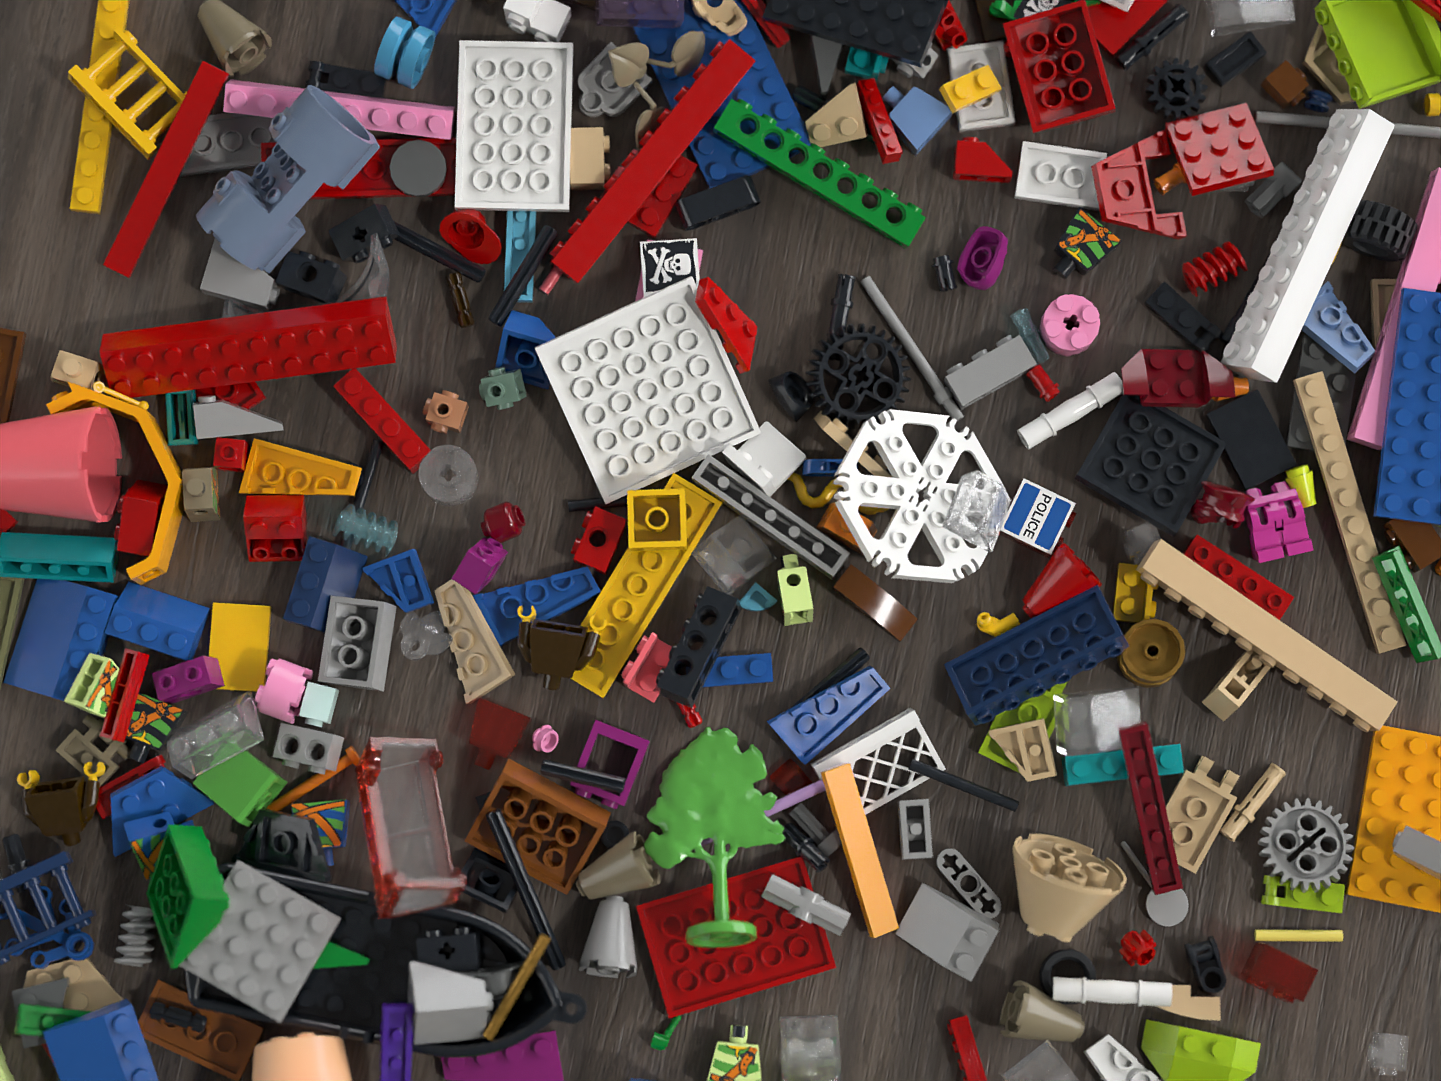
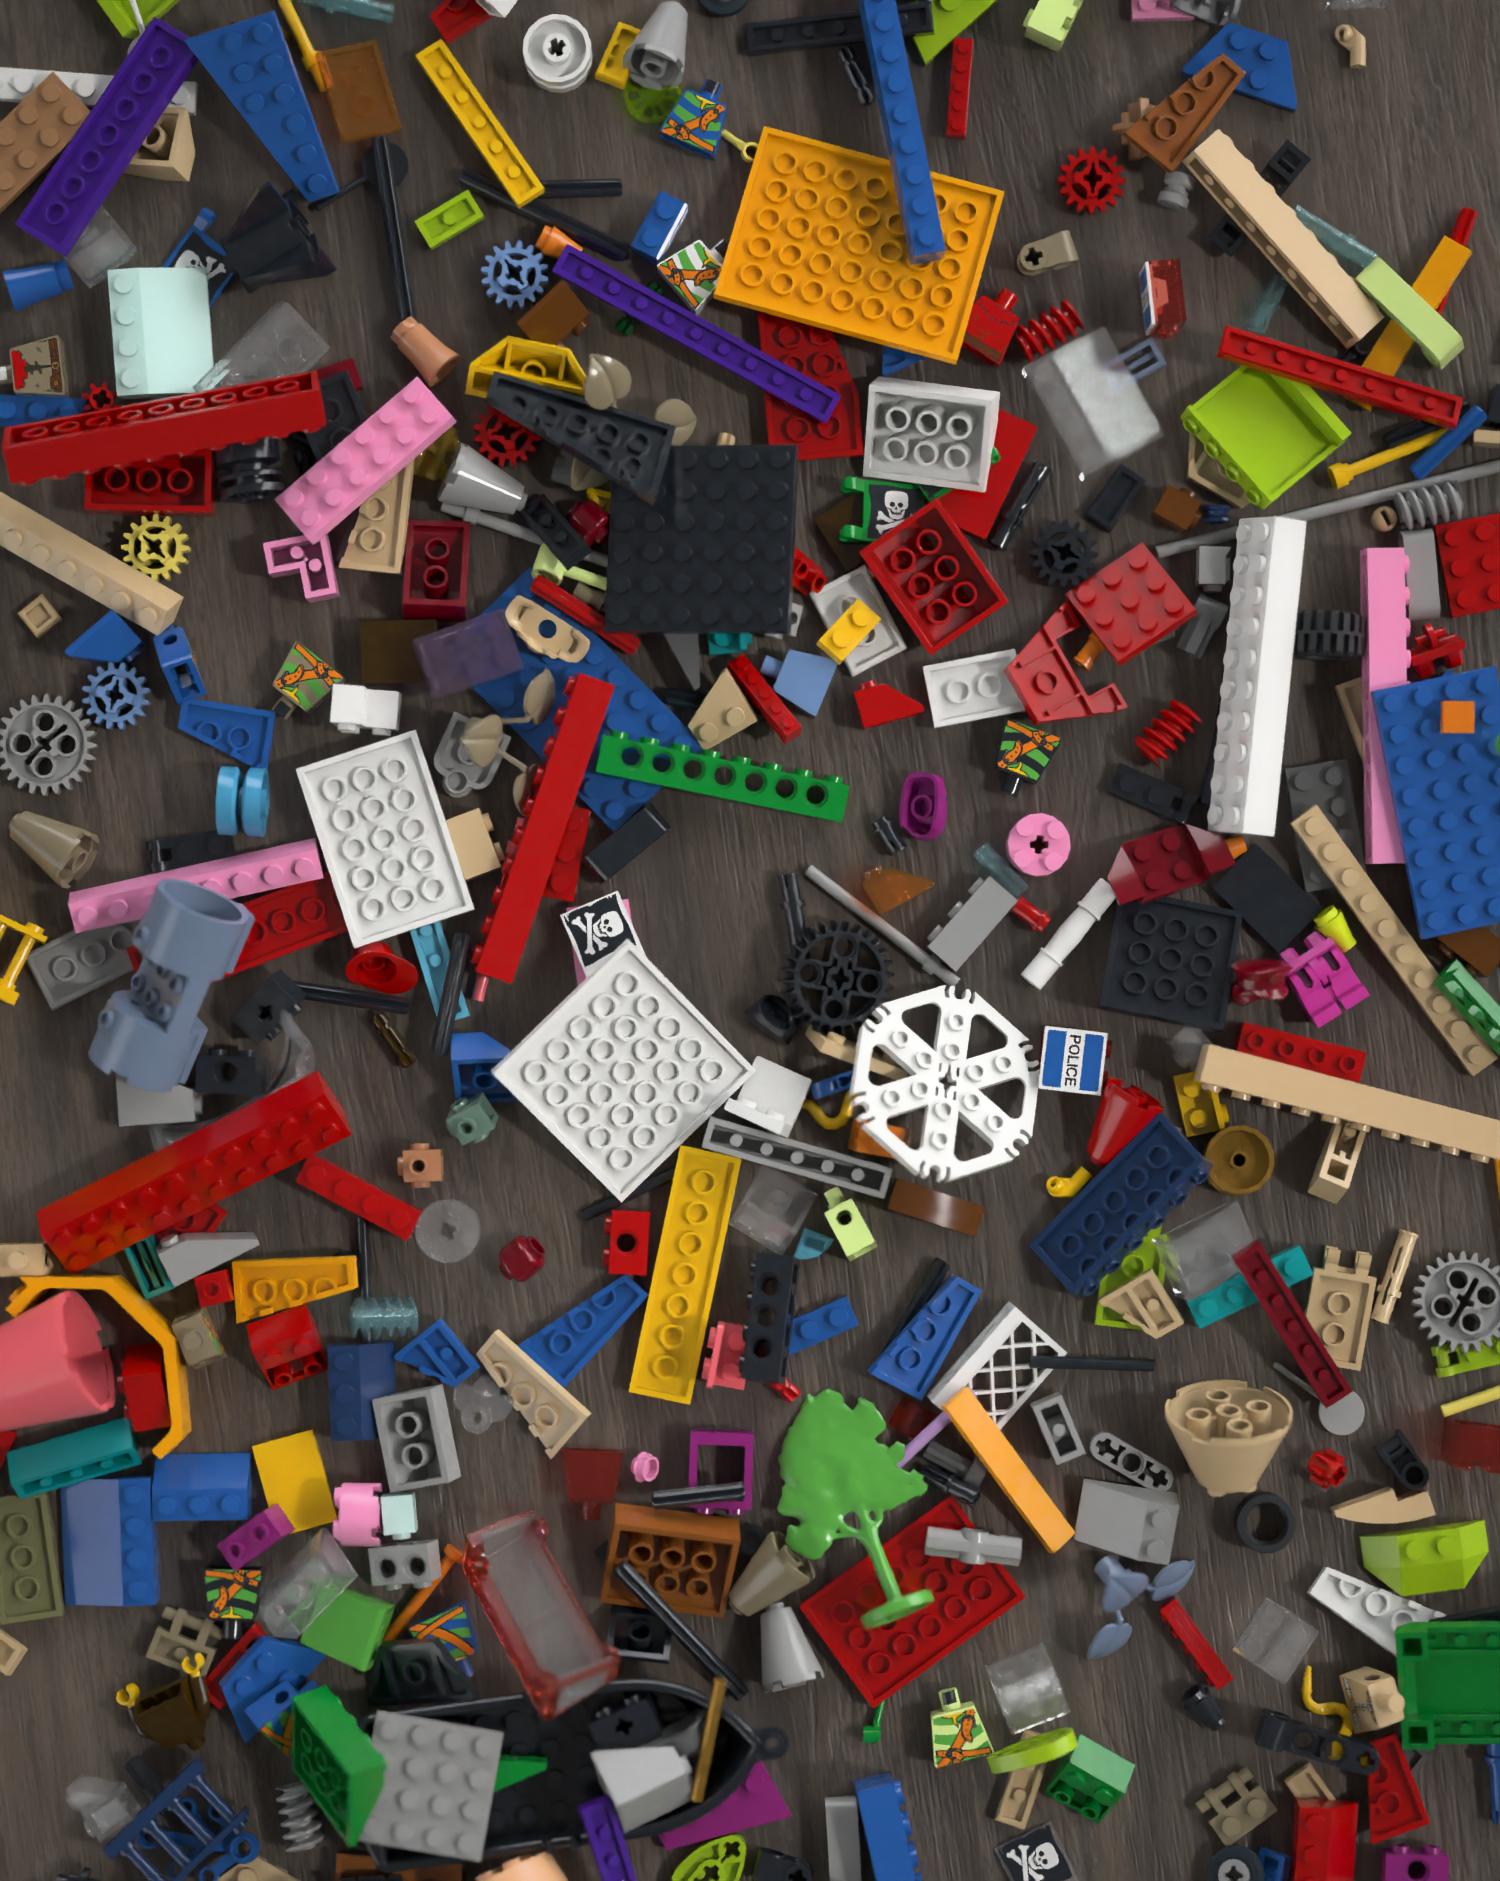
camera: 20 degrees left, 5 degrees up
(94, 685) = (169, 1581): yellowish green torso -> none
(99, 387) = (53, 1270): yellow hinge -> none
(124, 695) = (197, 1579): red piece -> none
(166, 169) = (37, 1012): red tile -> none
(418, 168) = (300, 919): dark grey tile -> none
(480, 564) = (514, 1314): magenta brick -> none
(556, 647) = (624, 1372): dark brown torso -> none
(657, 520) = (681, 1204): yellow brick -> none
(730, 320) = (684, 969): red wing -> none
(921, 983) = (1123, 1587): none -> sand blue plant
(933, 319) = (892, 887): none -> clear orange slope
(978, 510) = (1009, 1079): clear slope -> none
(1035, 1016) = (1248, 1575): dark tan cone -> none
(1112, 991) = (1316, 1525): white piece -> none
(1299, 144) = (1212, 568): none -> light grey window
(1336, 332) = (1317, 756): medium blue wing -> none

